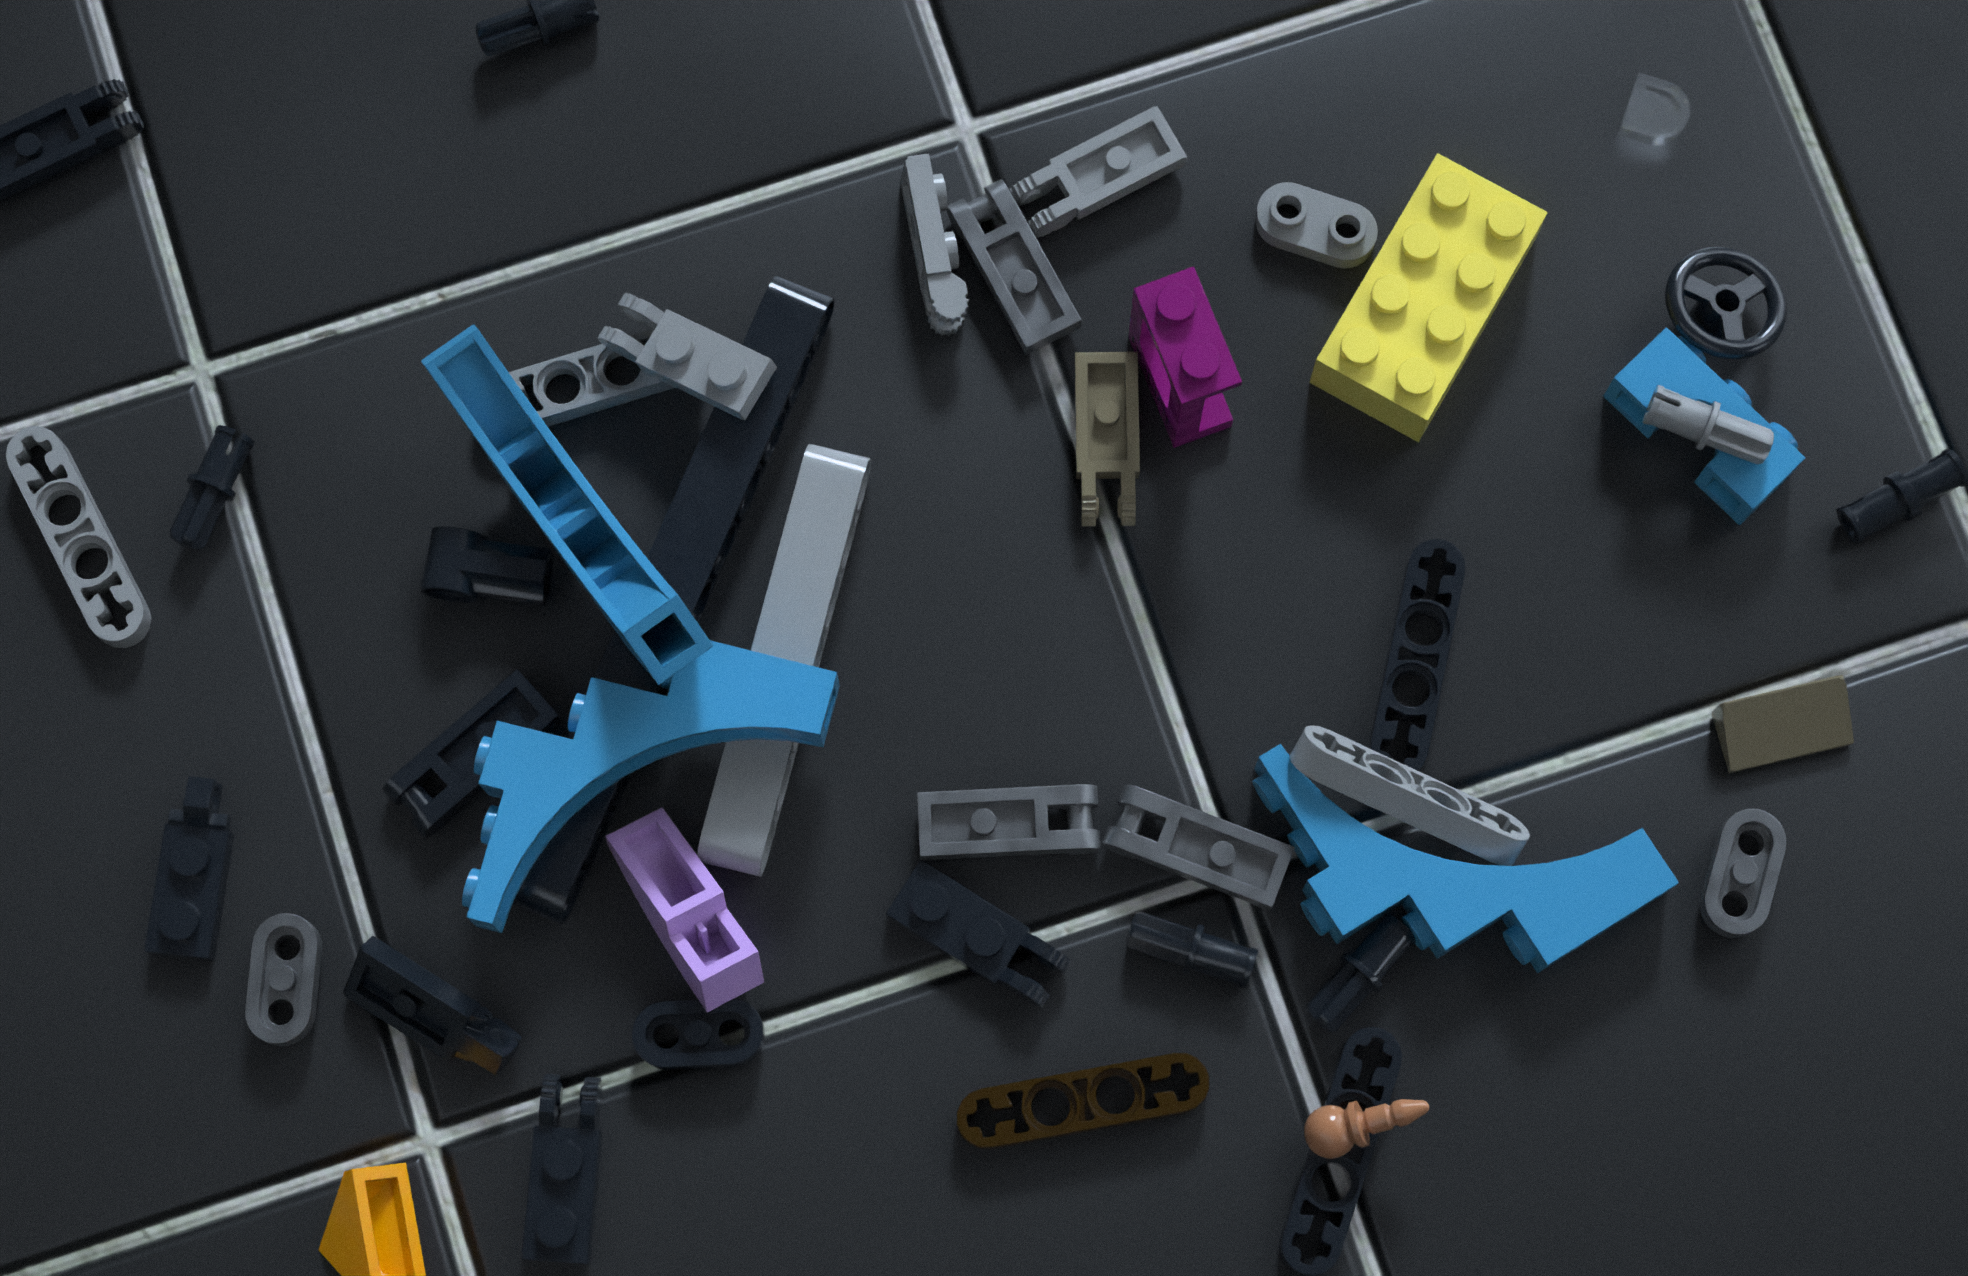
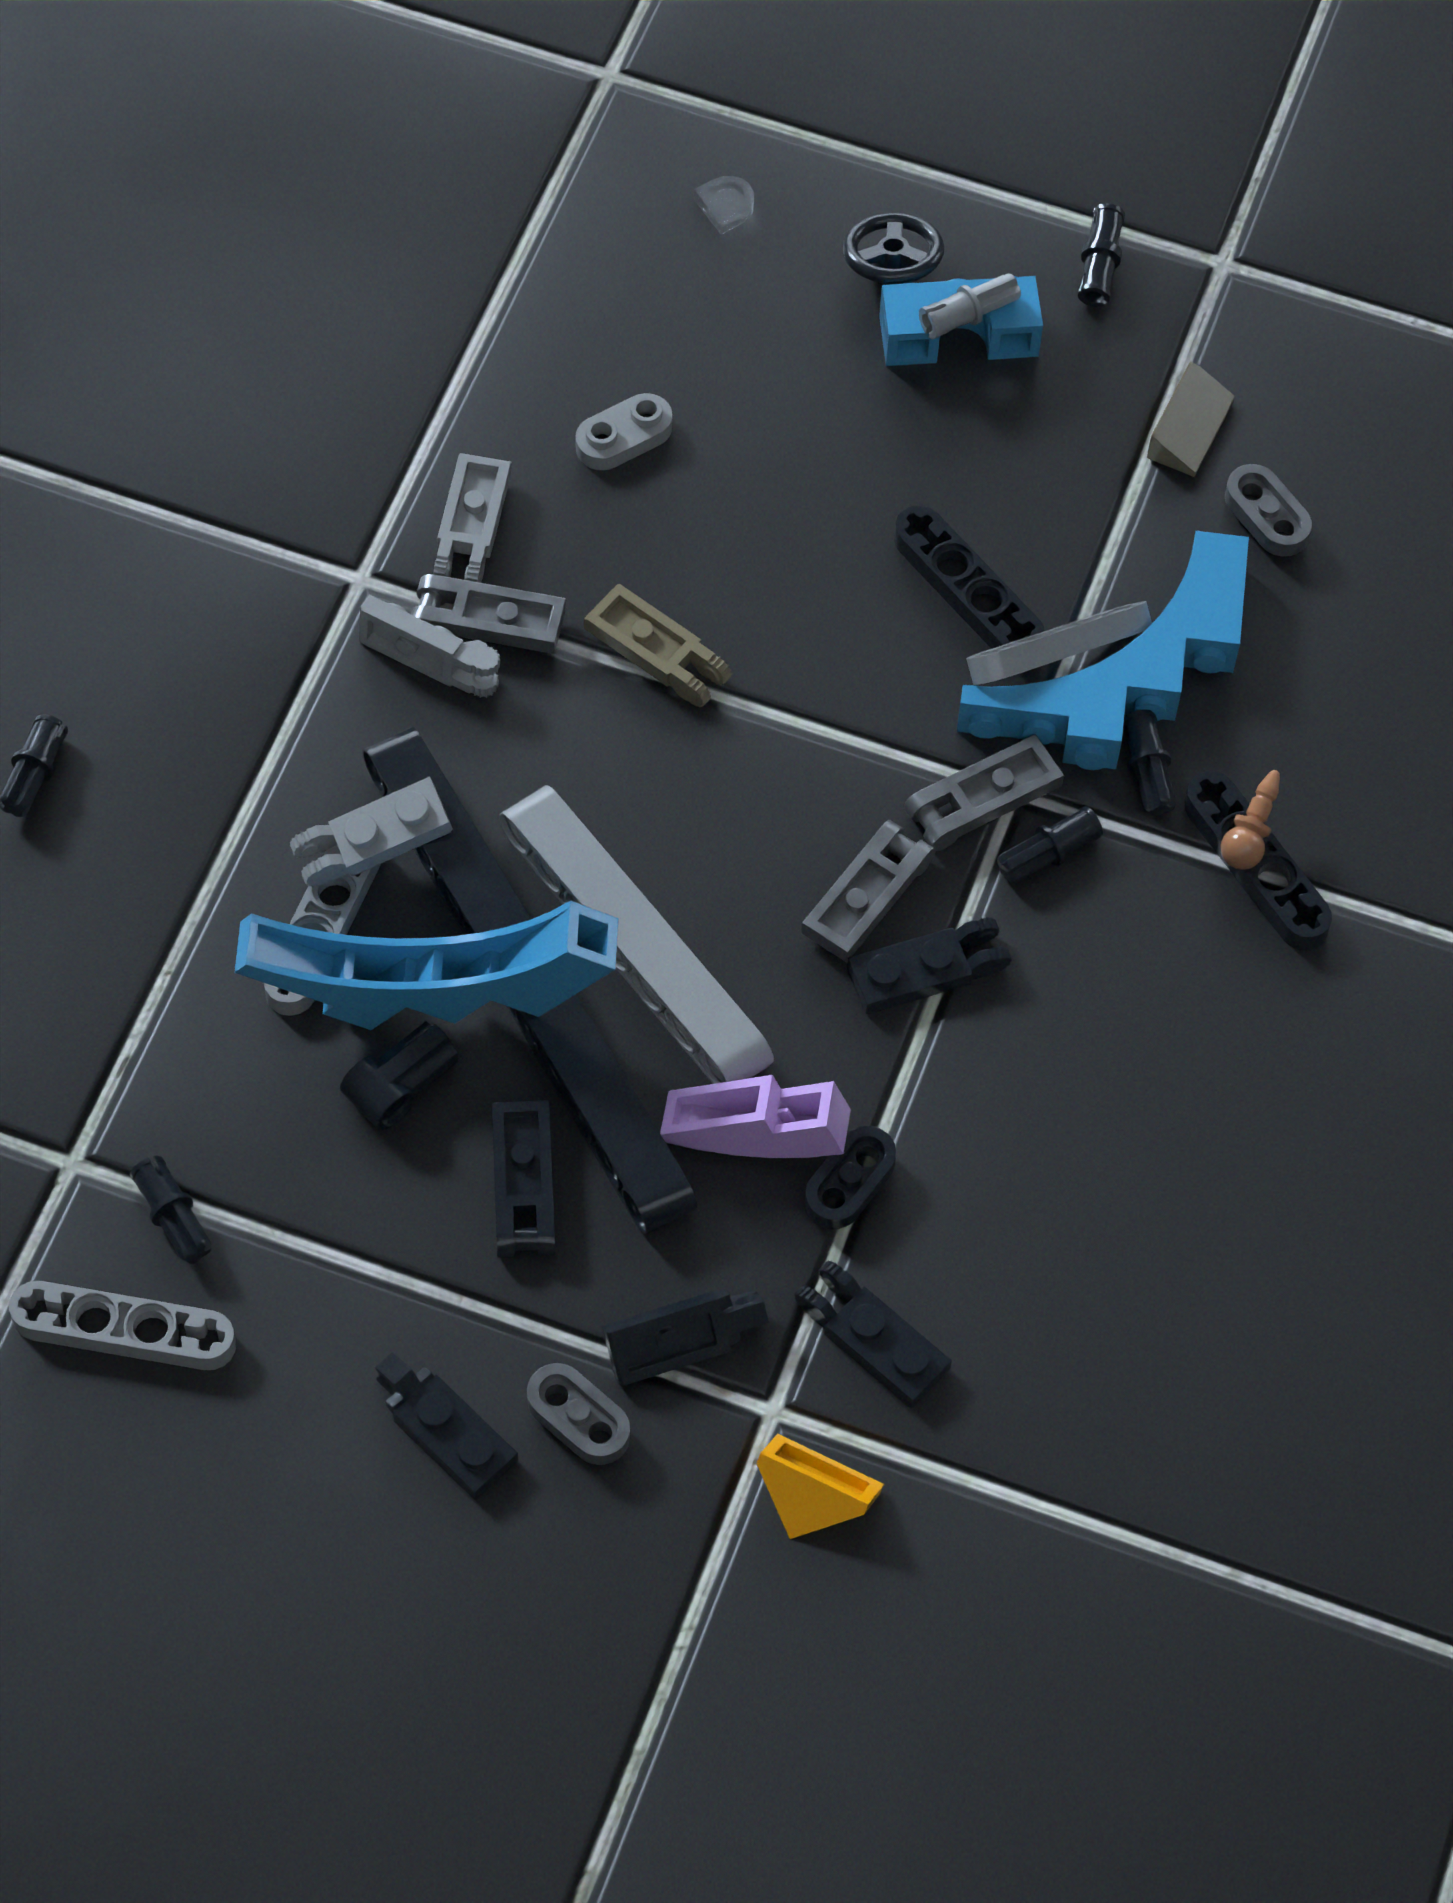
camera: 55 degrees left, 15 degrees down
(618, 730) = (601, 1052): dark azure arch -> none
(1080, 1091) = (1092, 981): dark brown beam -> none
(1183, 356) = (659, 578): magenta window -> none
(1427, 297) = (737, 401): light yellow brick -> none

